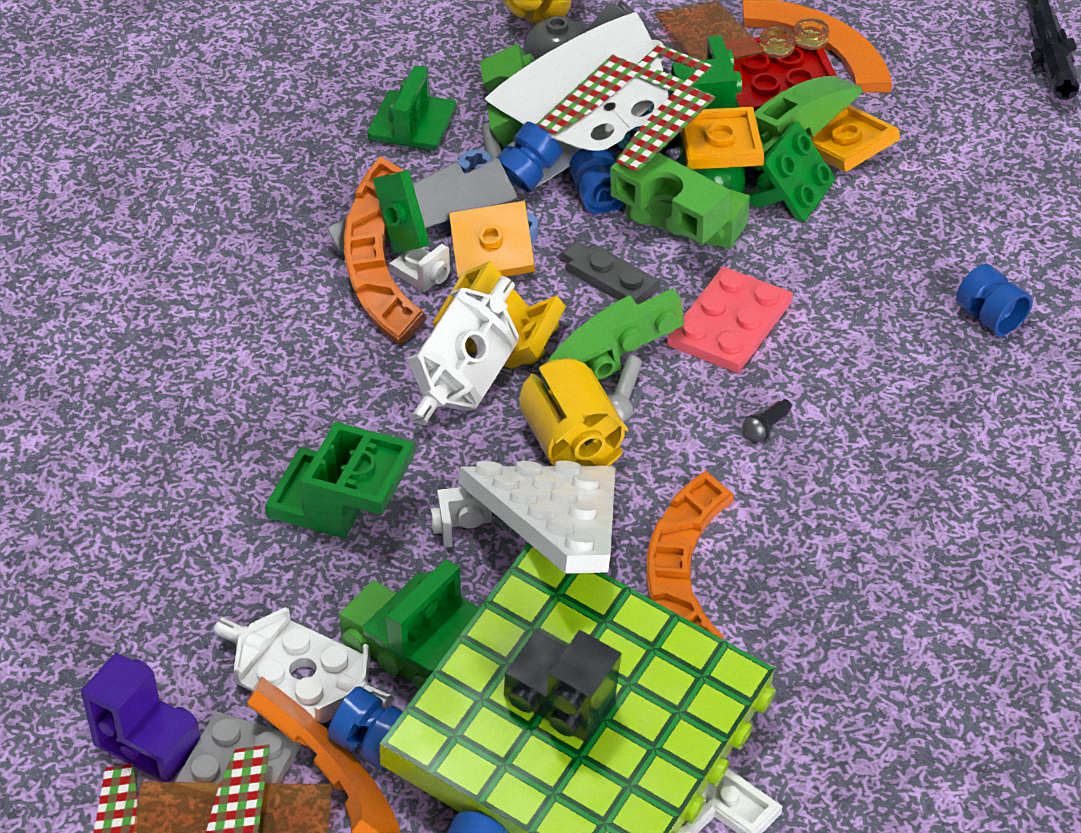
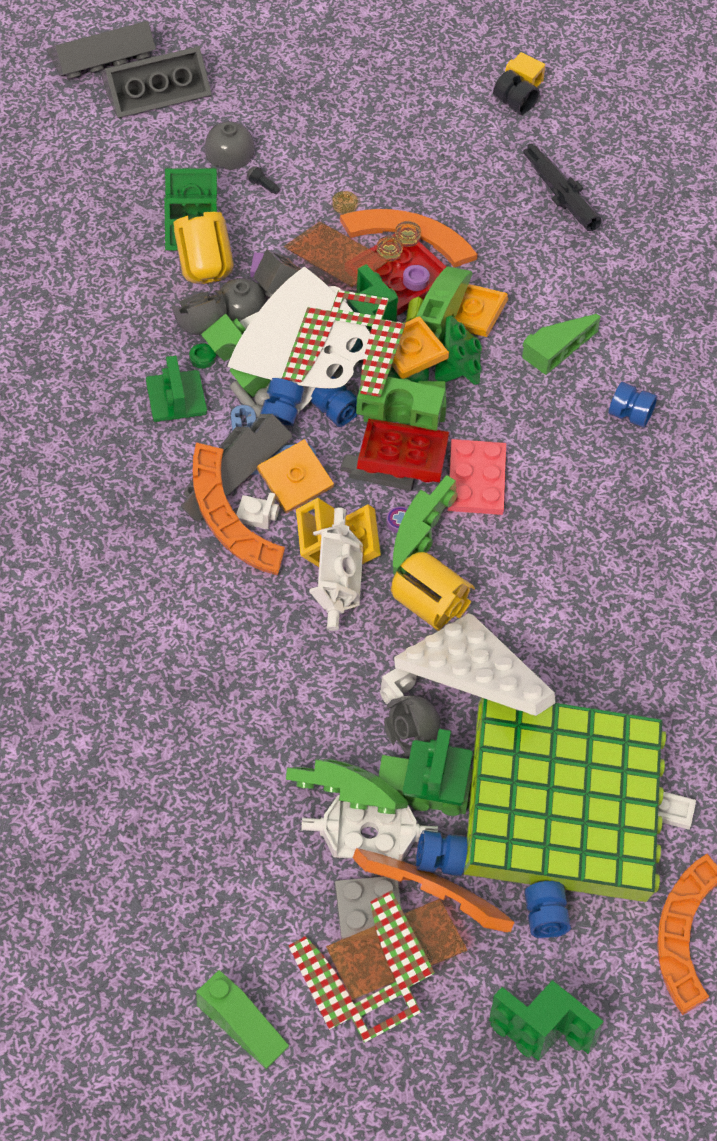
camera: 30 degrees left, 10 degrees up
(134, 723) = (300, 910): dark purple brick -> none
(304, 597) = (353, 784): none -> bright green slope
(345, 475) = (322, 688): green bracket -> none
(401, 211) = (234, 480): green plate -> none
(452, 542) = (411, 718): none -> dark grey cylinder
(472, 91) = (202, 356): none -> green tile
(490, 37) = (200, 312): none -> dark grey cylinder
(564, 683) = (563, 784): black brick -> none
(625, 387) = (441, 549): light grey bar -> none
(643, 253) = (403, 450): none -> red plate
(674, 543) = (537, 657): orange tile -> none
(758, 426) = (538, 550): piece -> none
(788, 76) = (416, 277): none -> medium lavender tile
(936, 203) = (558, 341): none -> bright green slope

